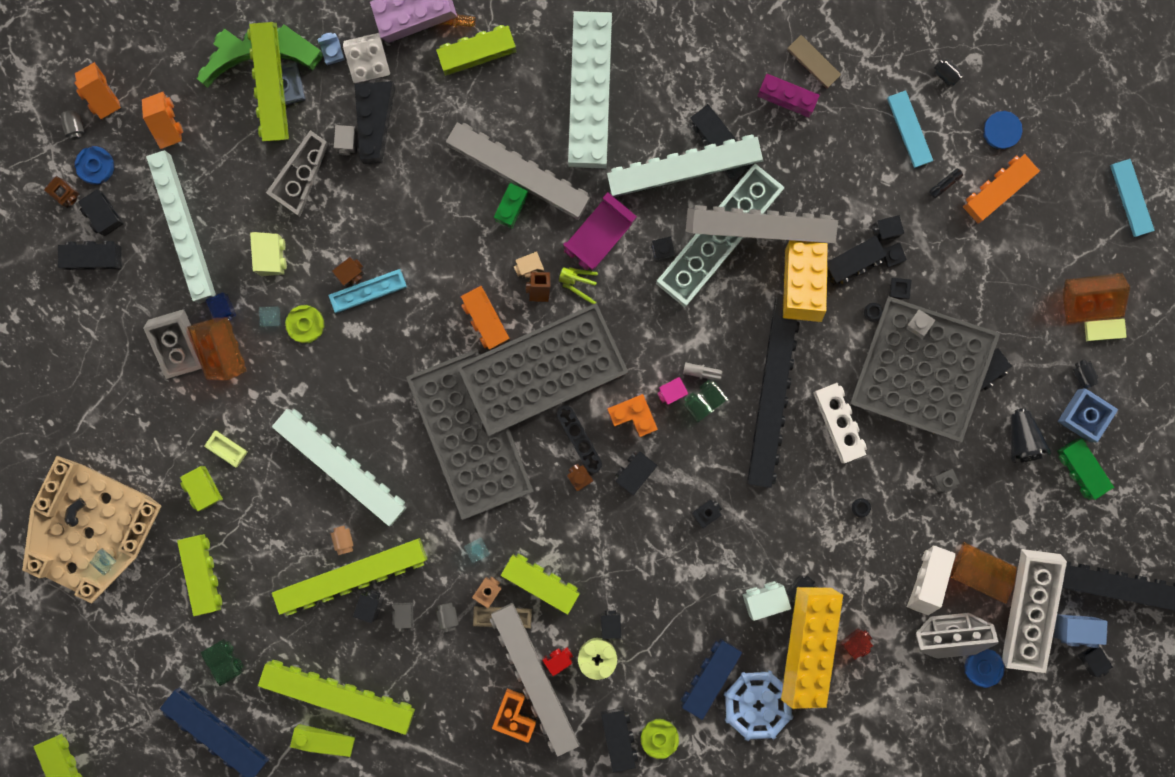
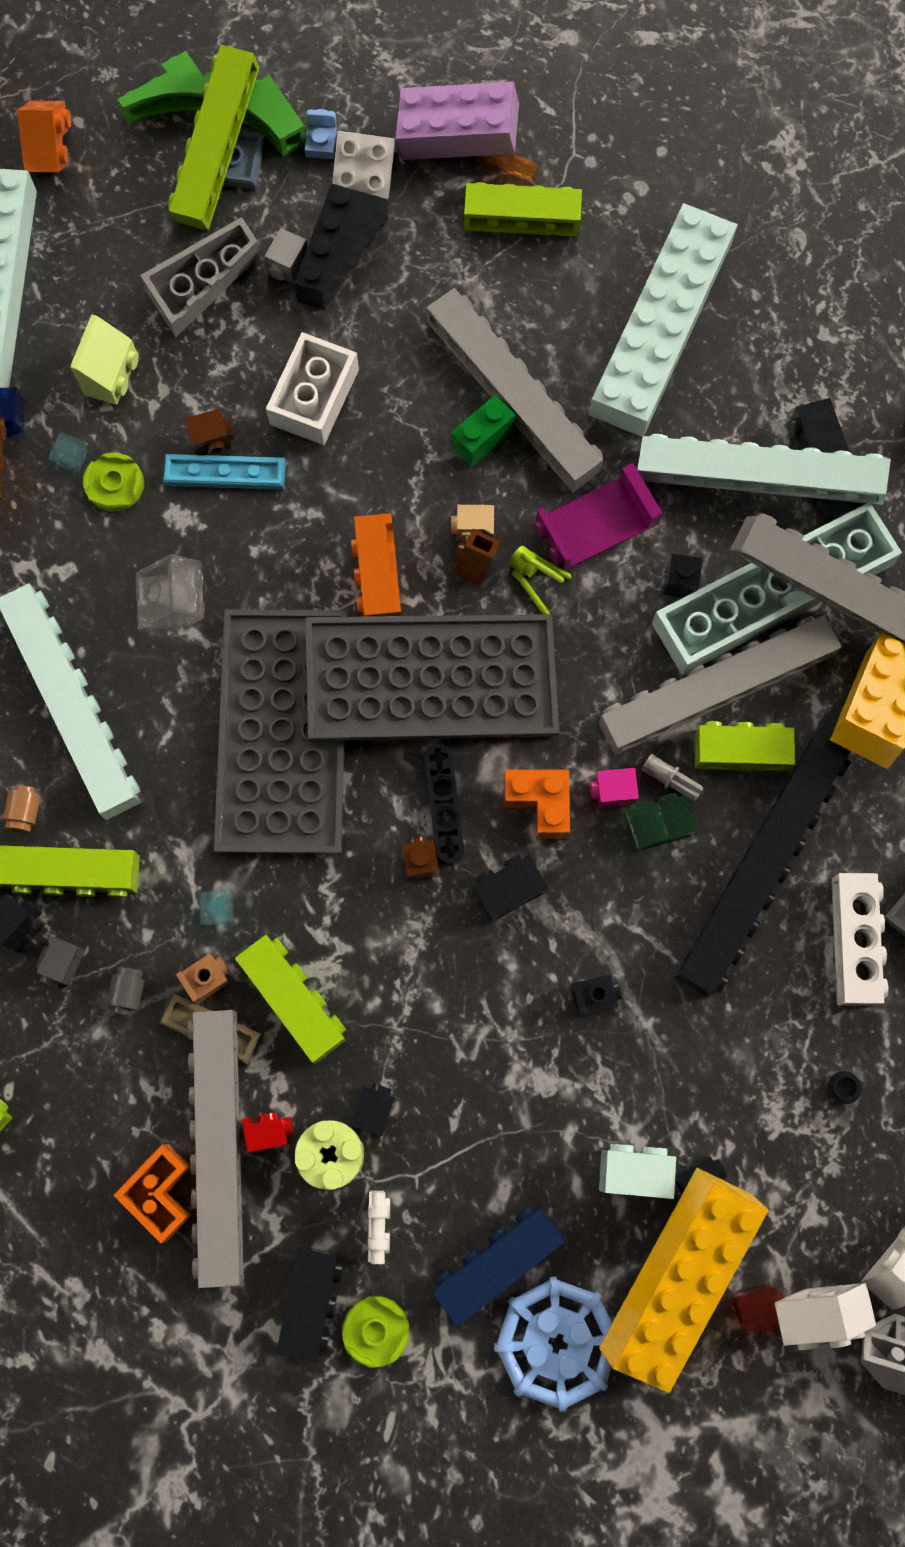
camera: 20 degrees right, 10 degrees down
(369, 380) = (170, 594): none -> clear slope
(399, 220) = (312, 388): none -> white brick
(642, 692) = (378, 1240): none -> white plate
(708, 306) = (718, 684): none -> light grey brick
(736, 337) = (744, 747): none -> lime brick
(893, 635) = (825, 1315): none -> white brick

